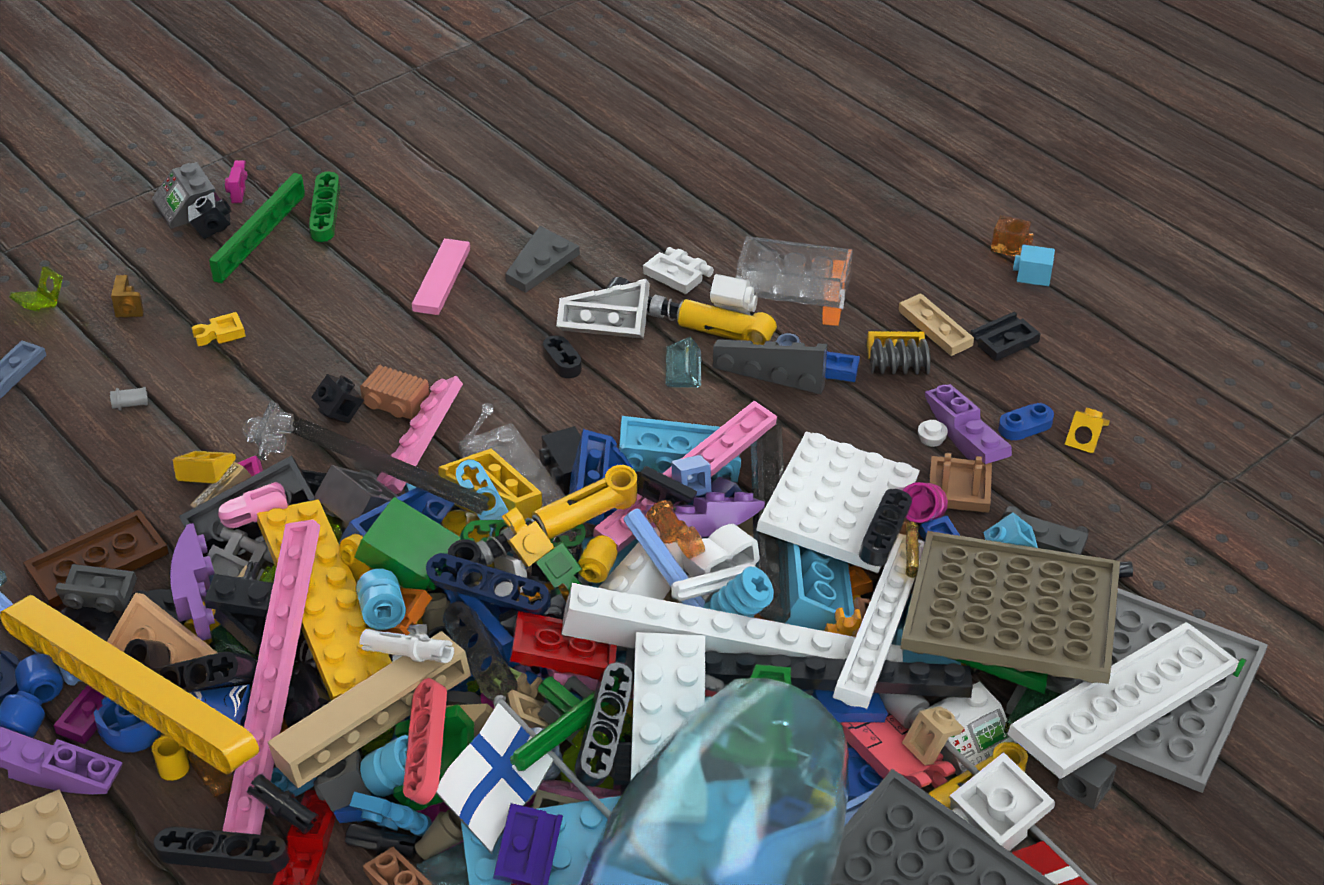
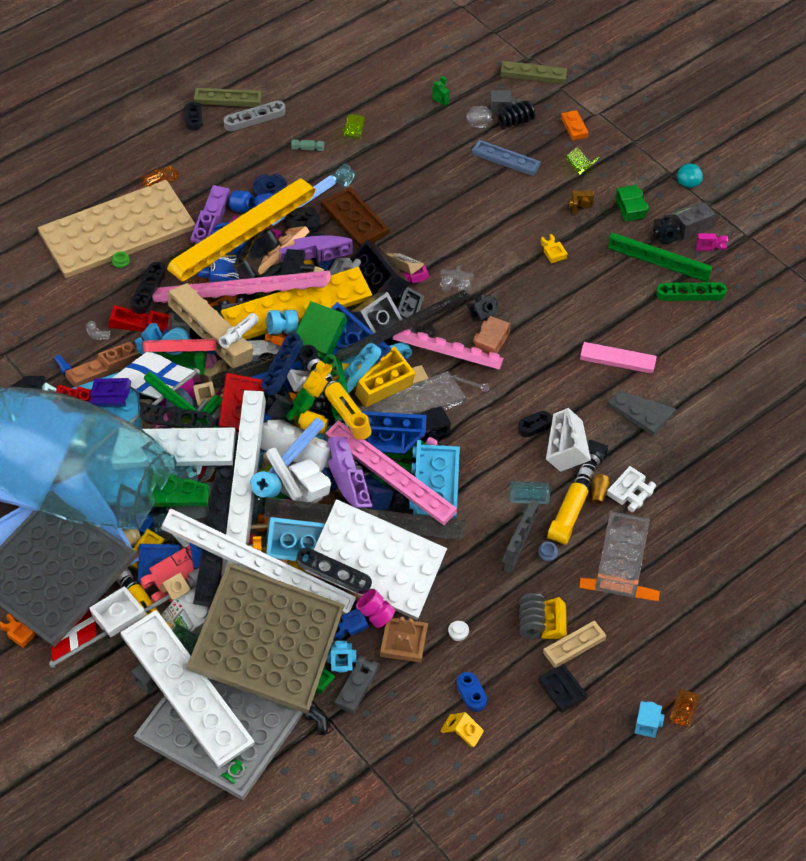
camera: 90 degrees right, 10 degrees up
(95, 195) = (689, 175): none -> teal hair
(97, 588) = (320, 215): dark grey bracket -> none
(128, 398) = (488, 213): light grey pin -> none
(141, 249) = (631, 202): none -> green brick
(202, 466) = (425, 251): yellow slope -> none
(245, 508) = (366, 266): bright pink arm -> none
(282, 803) = (161, 304): black pin -> none
(660, 487) = (361, 449): black tile -> none
(675, 530) = (312, 447): clear orange connector -> none
(679, 292) = (600, 485): none -> pearl gold cone
(693, 472) = (372, 464): medium blue plate -> none
(733, 294) = (587, 512): white brick -> none
(842, 366) = (527, 573): blue plate -> none
(912, 549) = (331, 595): clear yellow bar -> none
(965, 426) = (460, 650): medium lavender slope -> none

